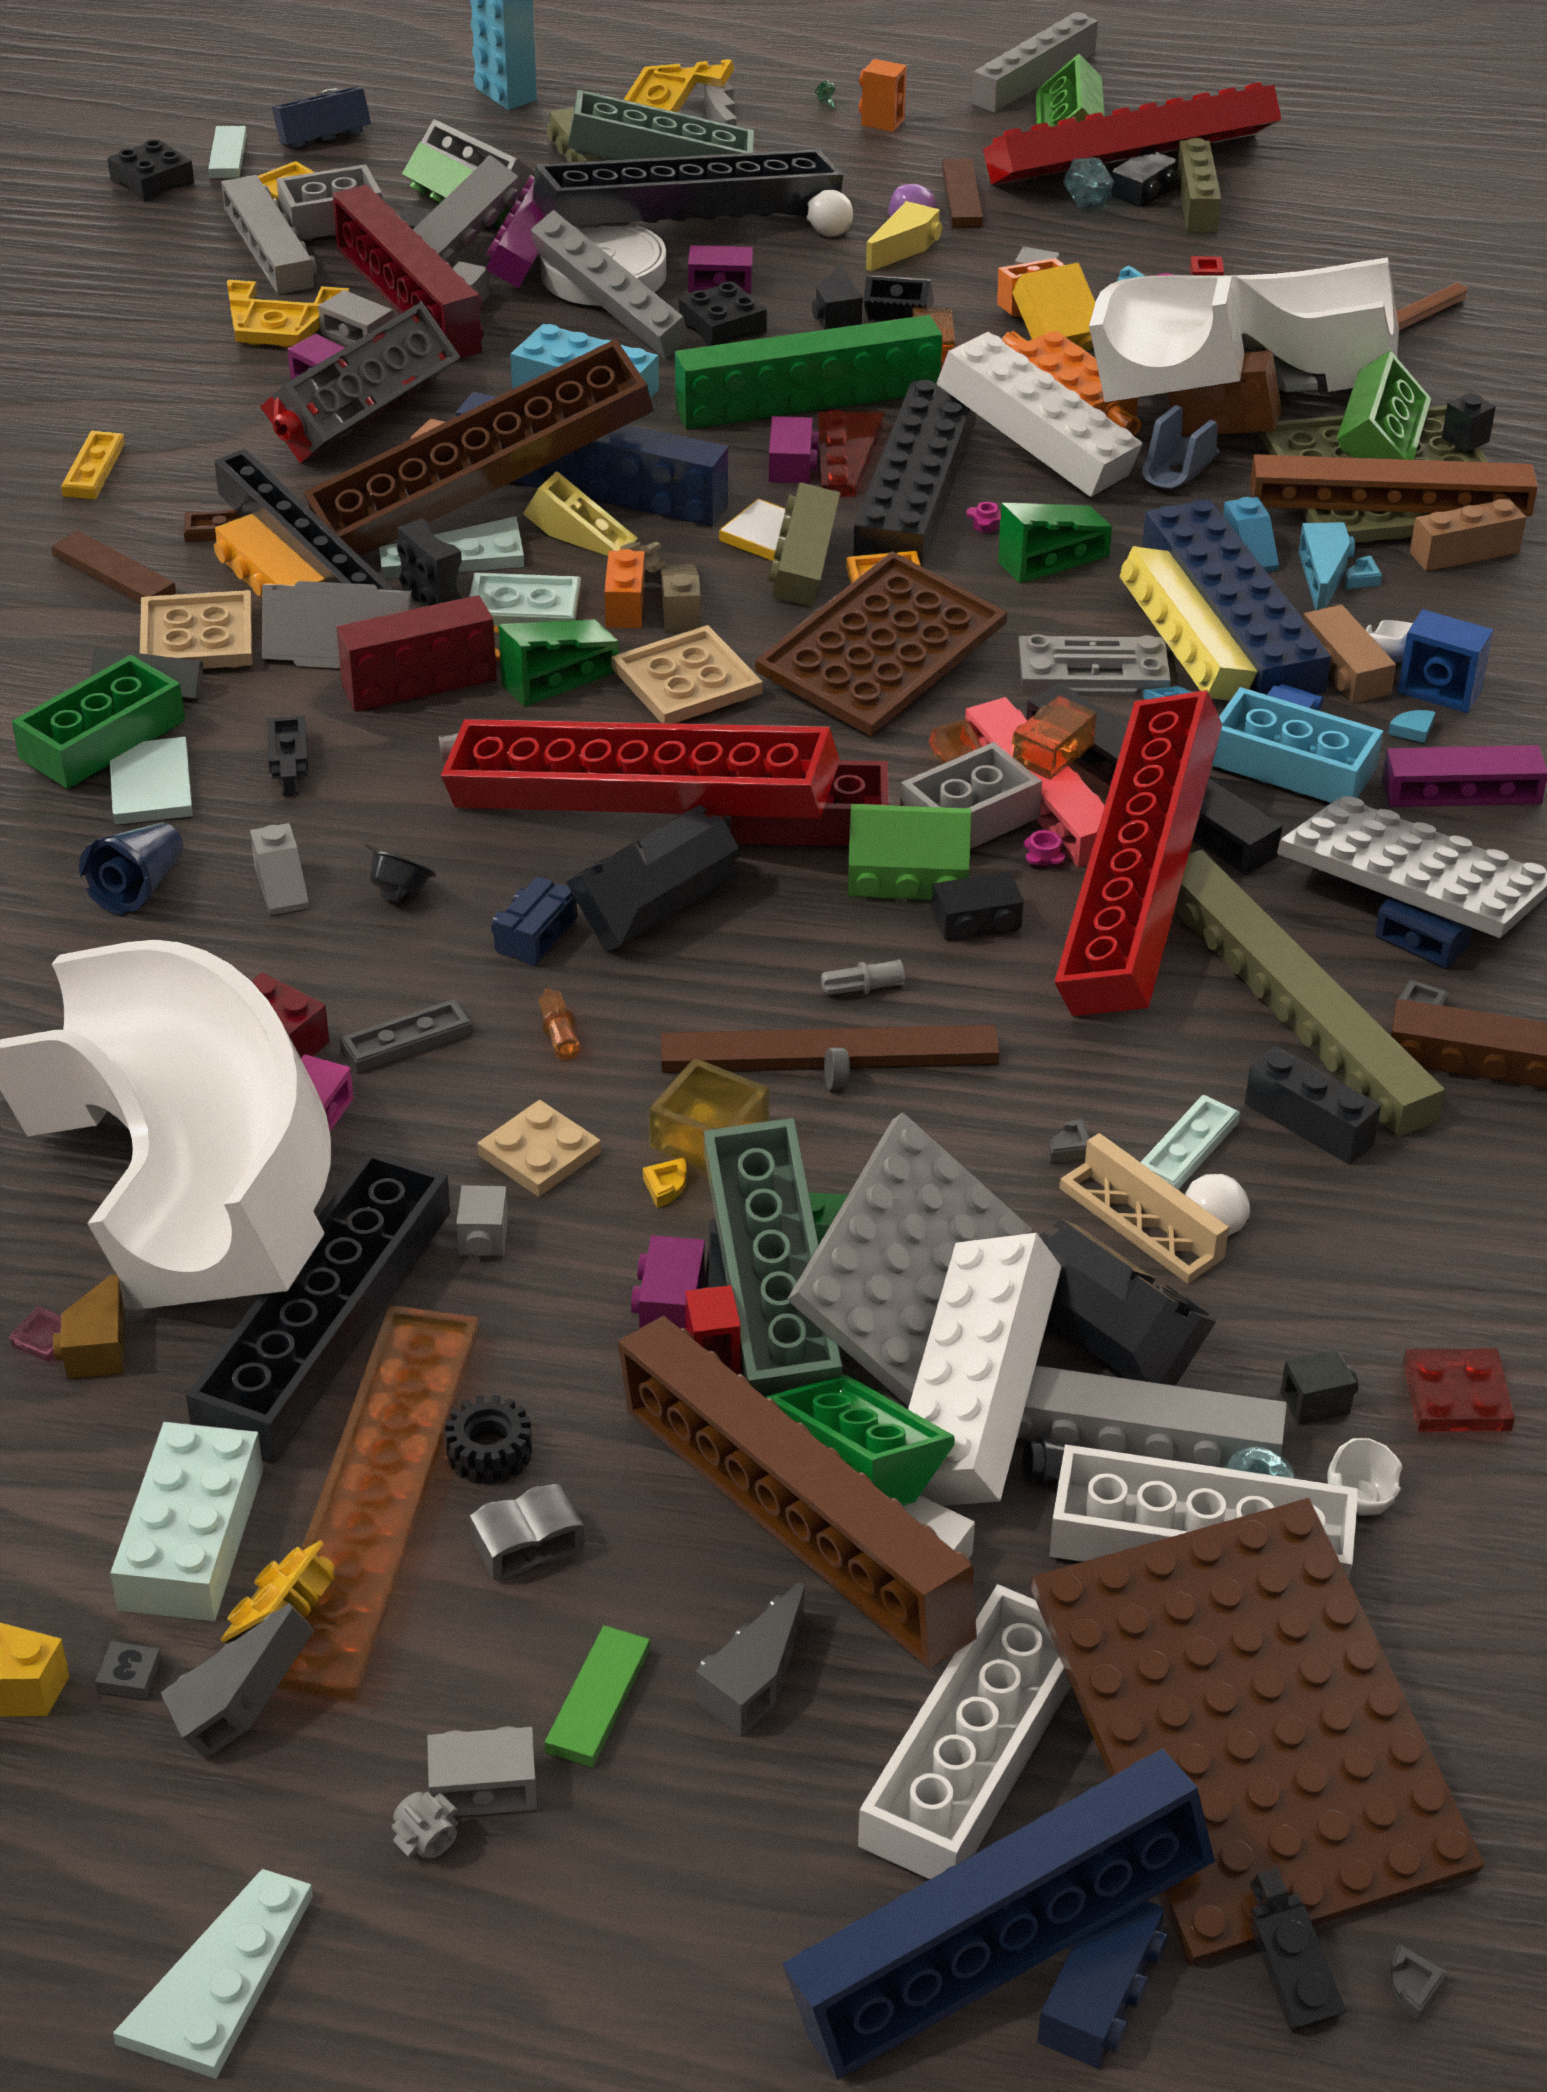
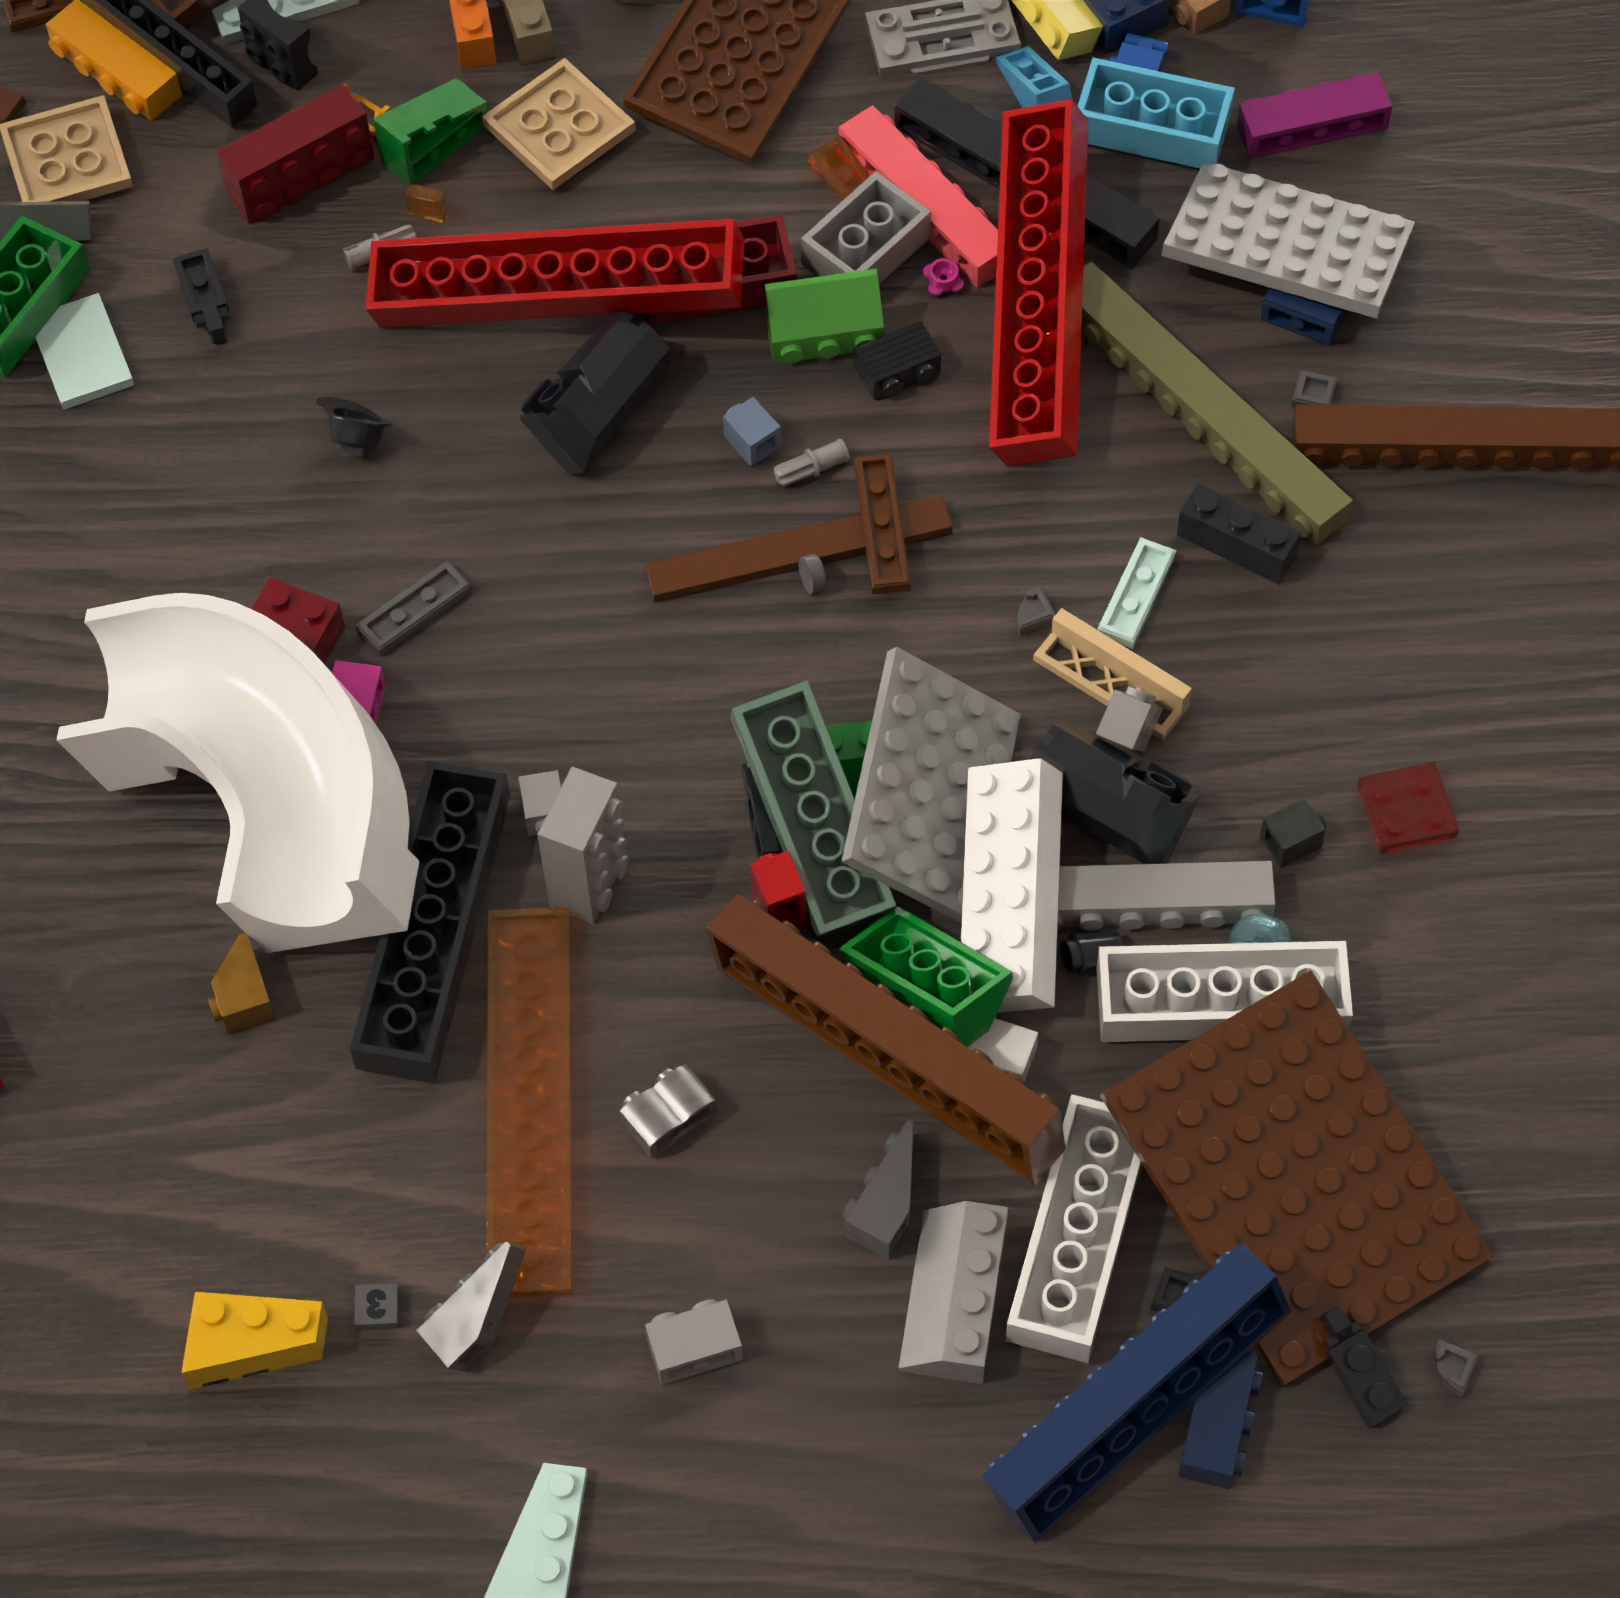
camera: 10 degrees left, 20 degrees up
(36, 1334) = (191, 995): clear pink tile -> none
(129, 866) = (103, 468): dark blue cone -> none
(187, 1522) = (383, 1160): light aqua brick -> none
(279, 869) = (241, 442): light grey slope -> none
(296, 1580) = (483, 1215): yellow hinge -> none
(303, 617) = (186, 131): light grey piece -> none
(424, 1825) = (662, 1399): light grey gear -> none
(493, 1459) = (610, 1048): black tyre -> none
(505, 1241) = (583, 845): none -> light grey brick
(528, 597) = (373, 51): light aqua tile -> none
(532, 708) = (426, 203): none -> clear orange tile
(534, 920) = (495, 457): dark blue brick -> none
(539, 1148) = (568, 710): tan plate -> none
(559, 1024) = (549, 569): clear orange axle -> none
(597, 1696) = (766, 1249): bright green tile -> none
(665, 1180) = (689, 723): yellow tile -> none
(666, 1273) = (725, 839): magenta brick -> none
(700, 1101) = (715, 655): clear yellow piece -> none
(807, 940) = (751, 431): none -> sand blue brick
(811, 1780) = (954, 1291): none -> light grey slope
(923, 1037) = (882, 524): none -> reddish brown tile
(1054, 737) = (931, 156): clear orange brick -> none
(1152, 1238) = (1130, 718): none -> light grey brick
(1222, 1198) = (1176, 654): white hair -> none
(1371, 1469) = (1347, 916): white hair -> none
(1412, 725) = (1256, 55): medium azure tile -> none

